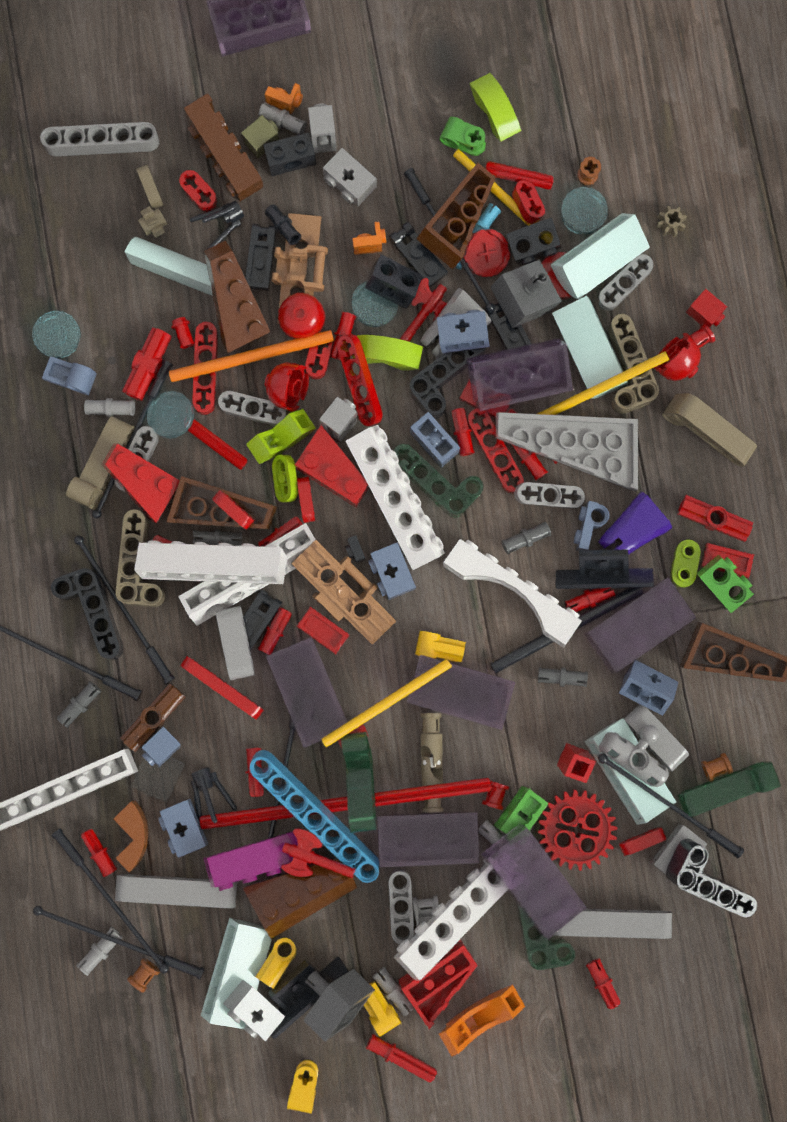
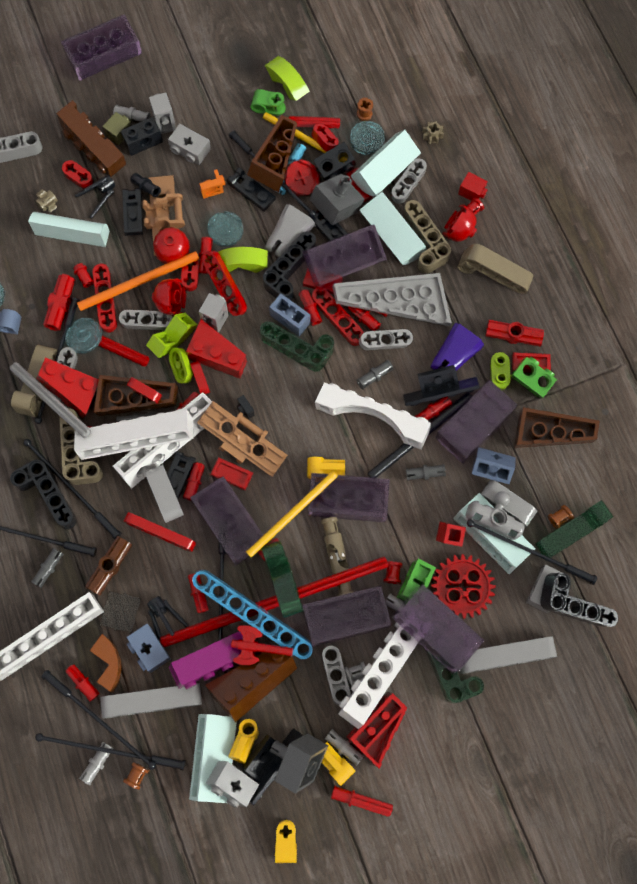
camera: 10 degrees left, 10 degrees down
(109, 407) = (35, 339): light grey pin -> none
(115, 497) = (50, 400): none -> light grey axle
(149, 187) = (40, 177): dark tan beam -> none
(160, 747) = (118, 588): sand blue brick -> none
(234, 302) = (120, 245): reddish brown wedge -> none
(282, 100) = (129, 100): orange bracket -> none
(383, 491) = (235, 328): white brick -> none
(391, 557) = (275, 408): sand blue brick -> none
(393, 281) = (236, 208): black brick -> none
(431, 303) = (268, 220): red piece -> none
(475, 333) = (295, 231): sand blue brick -> none
(480, 1017) = (419, 752): orange arch -> none
(583, 536) = (420, 355): sand blue plate -> none
(603, 983) = (511, 705): red axle -> none
(607, 384) = (415, 247): yellow piece -> none
(642, 841) = (516, 585): red beam -> none

